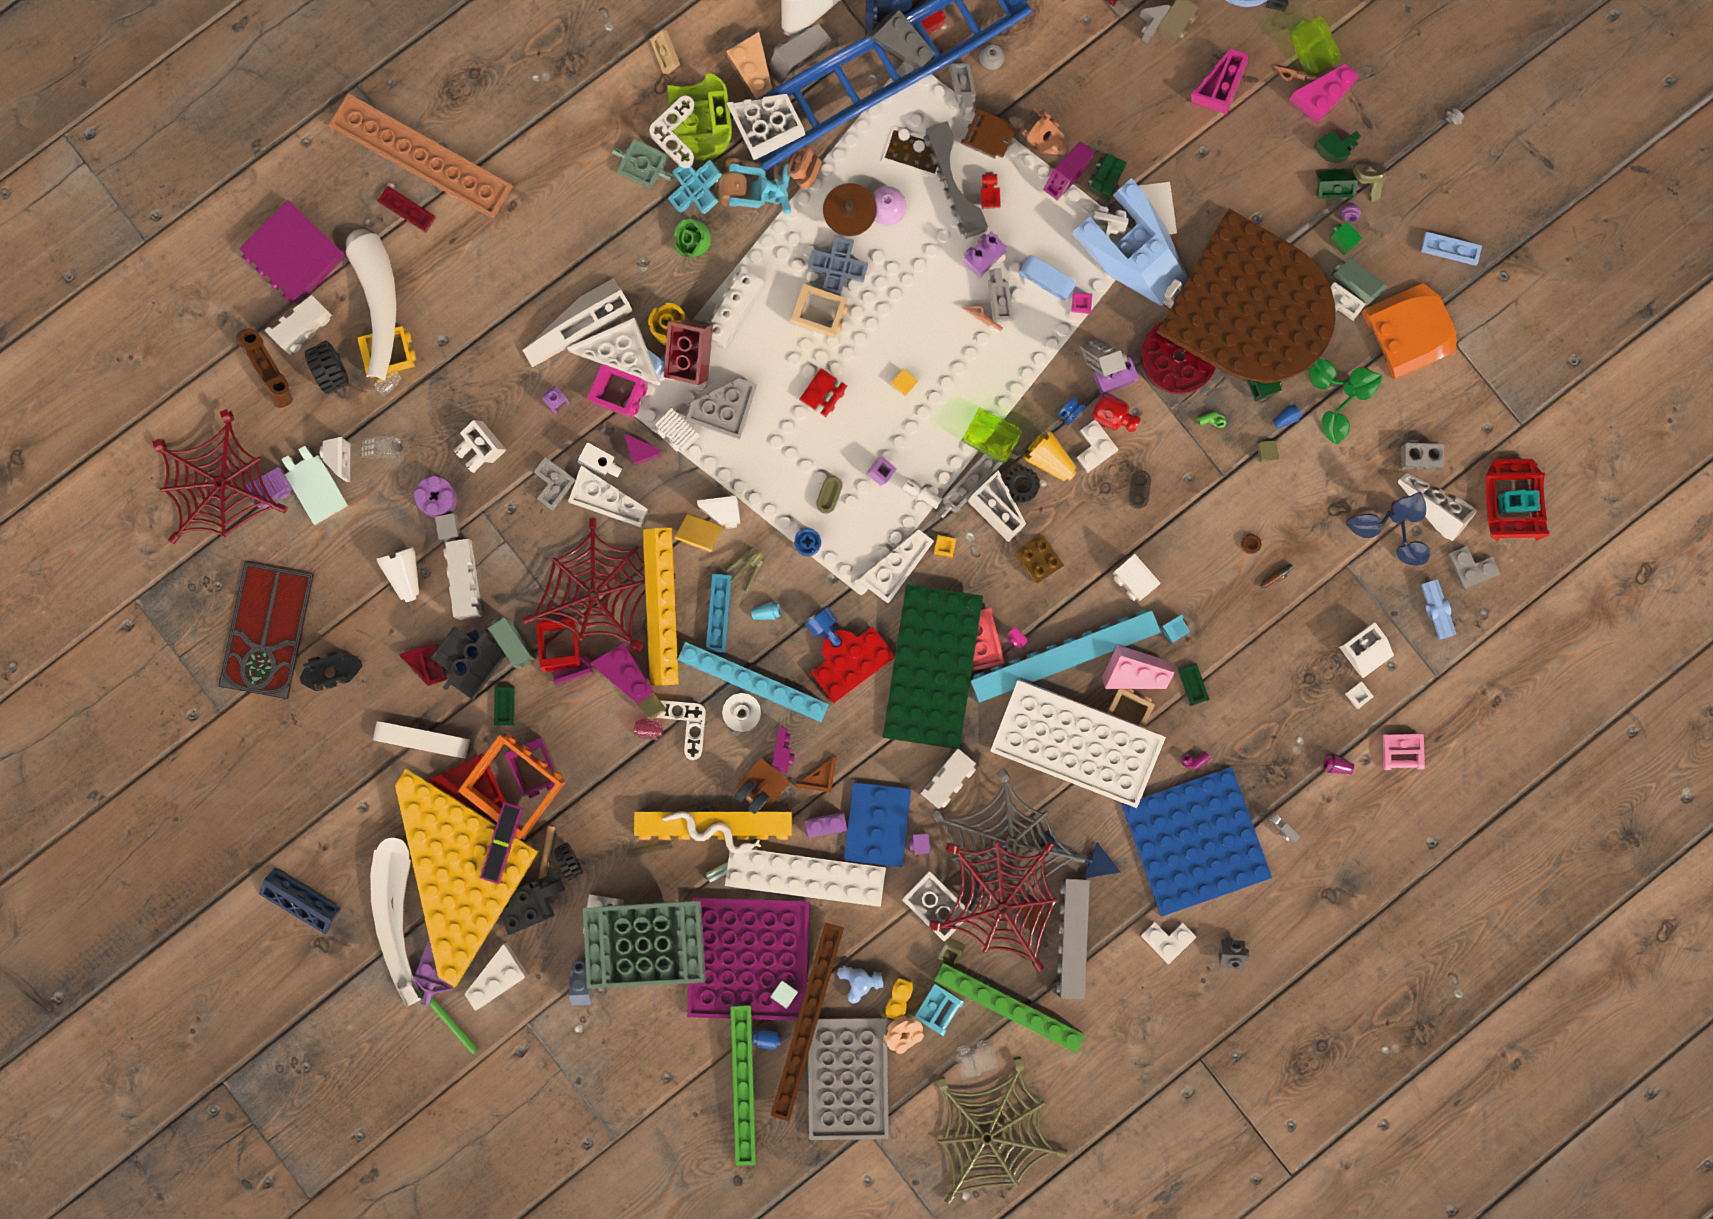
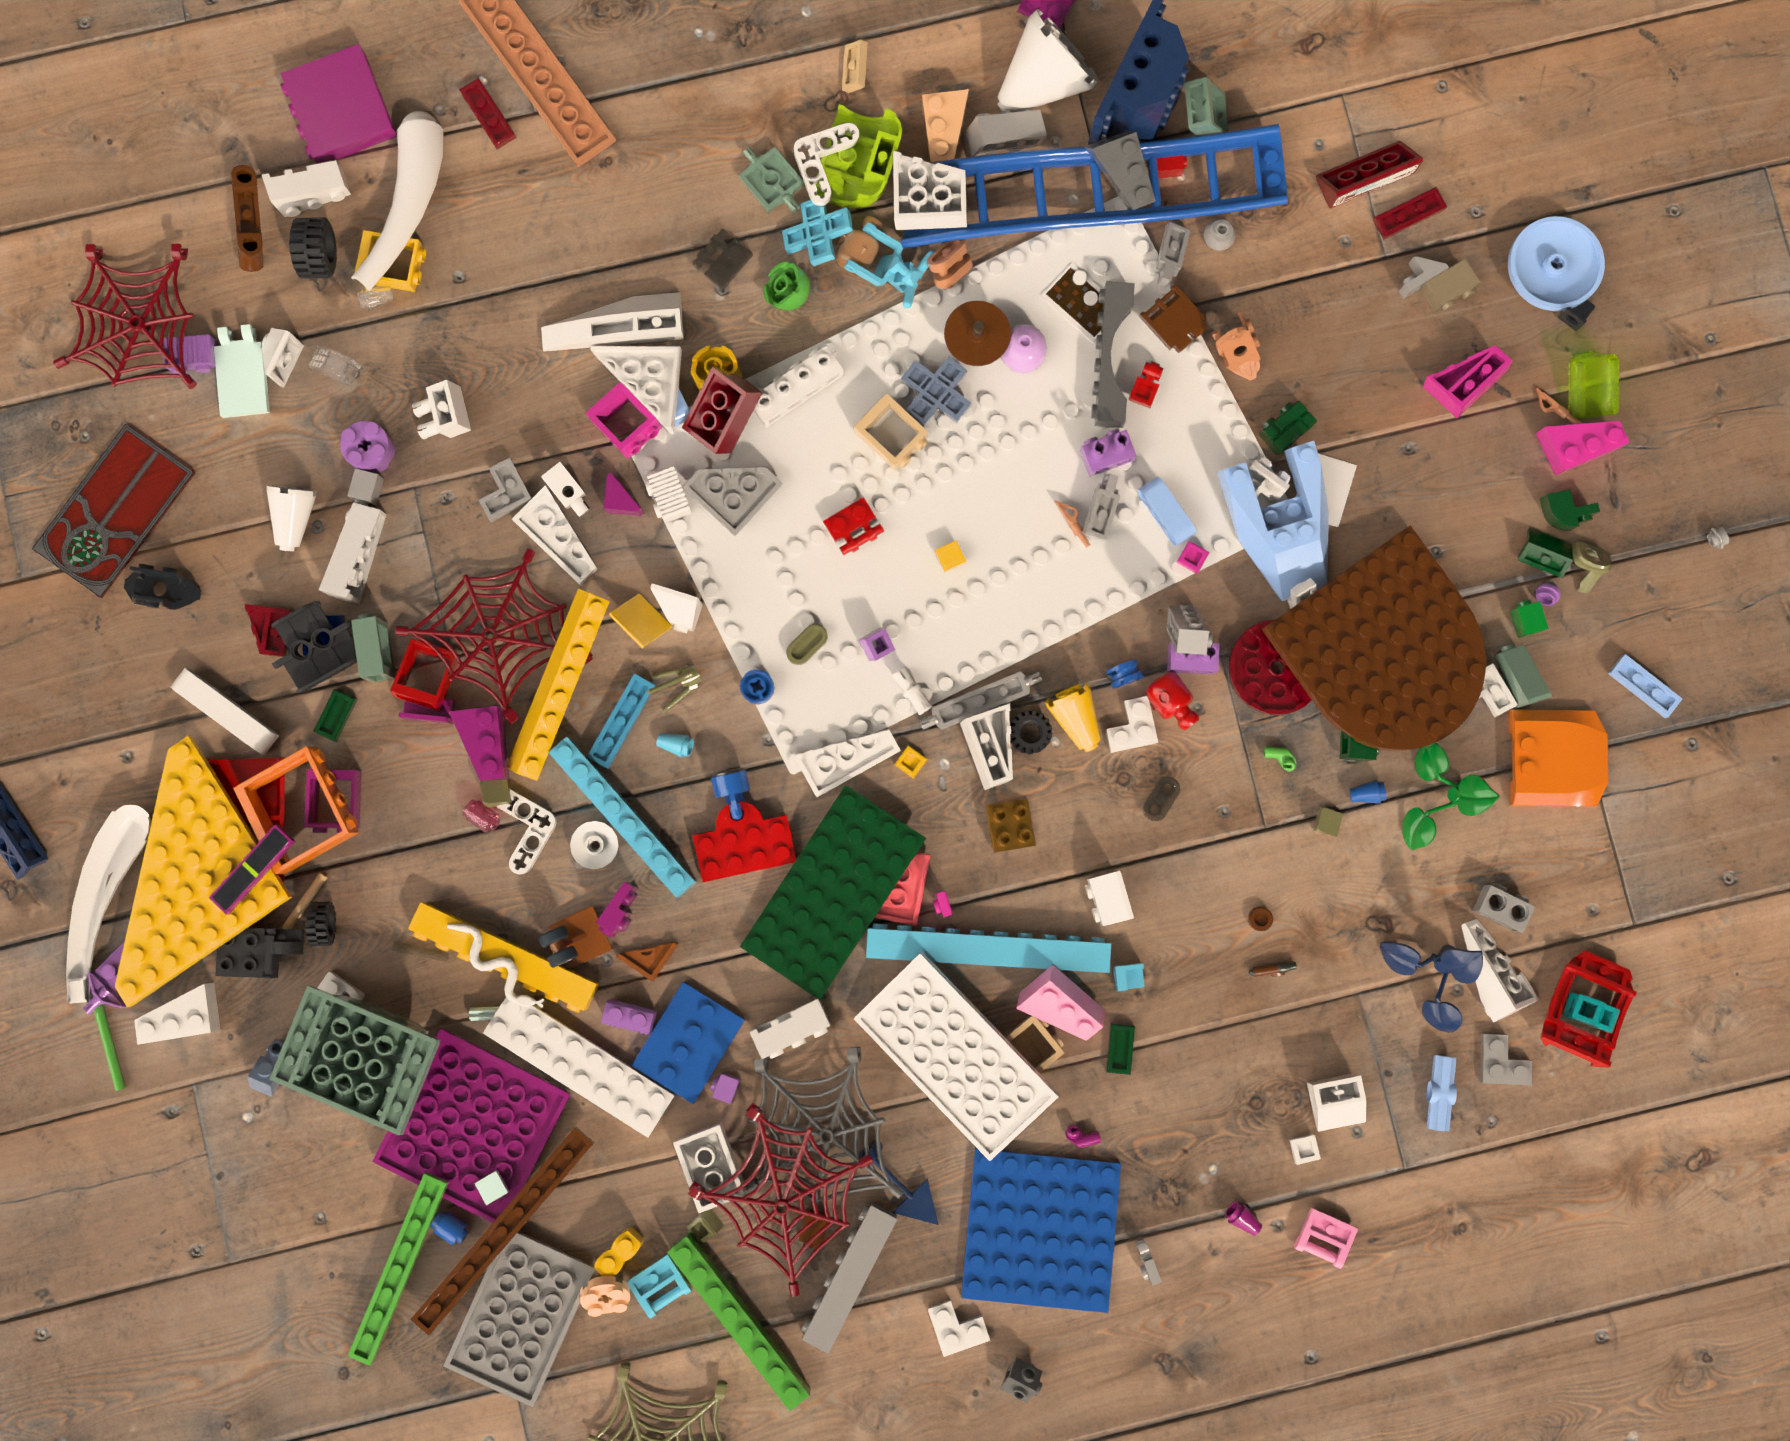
camera: 25 degrees right, 0 degrees up
(554, 399) = (550, 396): medium lavender window -> none
(639, 240) = (728, 264): none -> clear smoke plate
(860, 982) = (584, 1212): light blue animal -> none
(975, 1059) = (672, 1364): clear brick -> none
(992, 435) = (1020, 661): clear neon green piece -> none
(1068, 170) = (1246, 400): magenta window -> none

